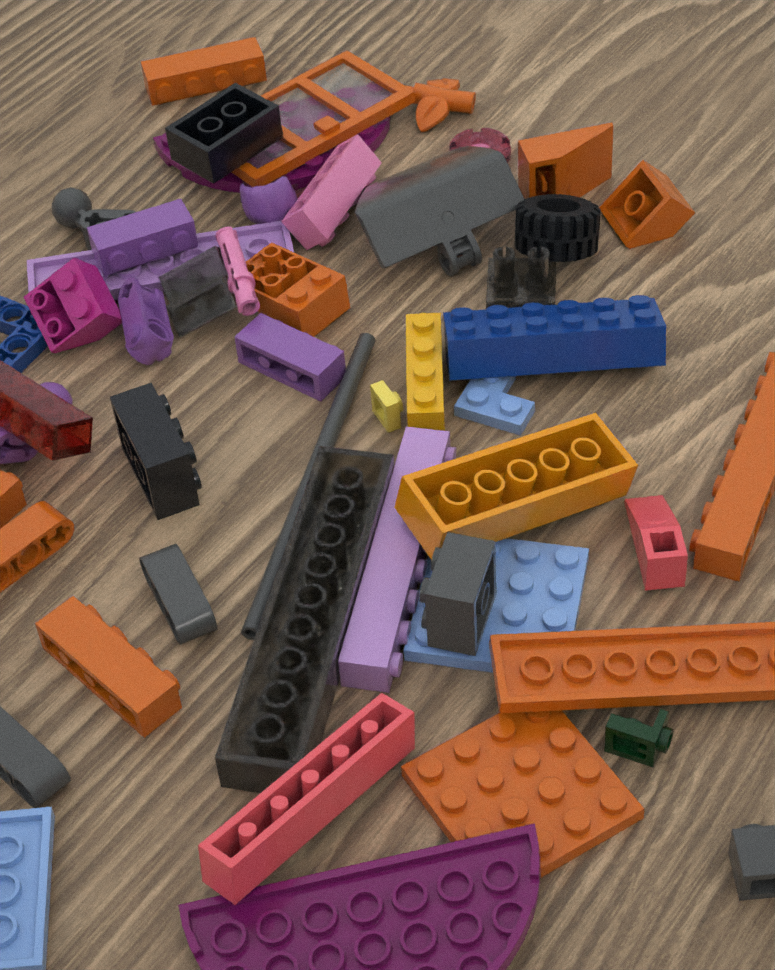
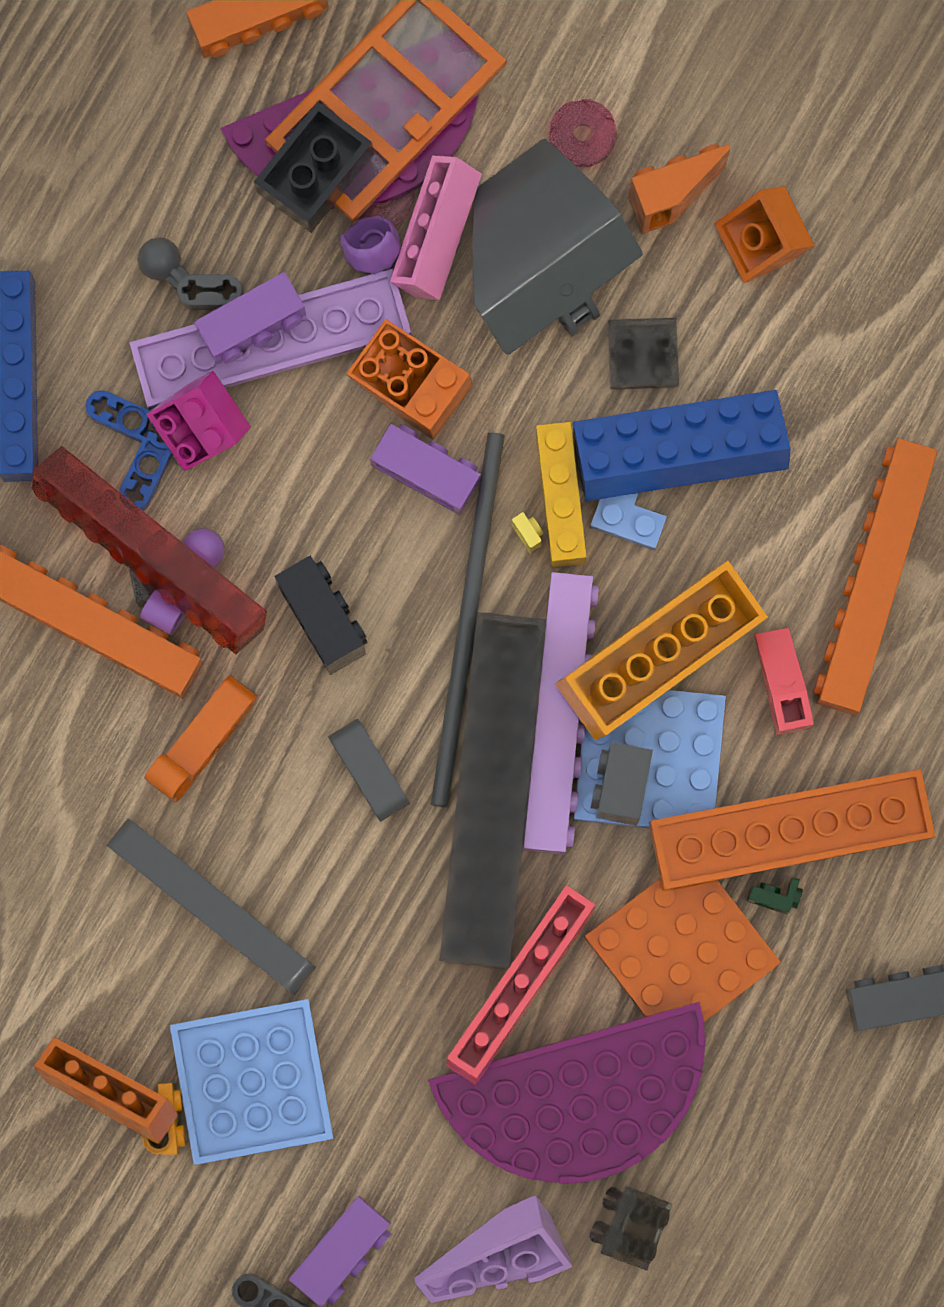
camera: 10 degrees left, 35 degrees up
(110, 665) = (323, 852): orange brick -> none
(145, 322) = (272, 429): medium lavender piece -> none
(198, 291) = (322, 390): clear smoke slope -> none
(239, 281) = (367, 393): bright pink pin -> none
(437, 99) = (530, 51): orange plant -> none
(559, 223) = (682, 263): black tyre -> none

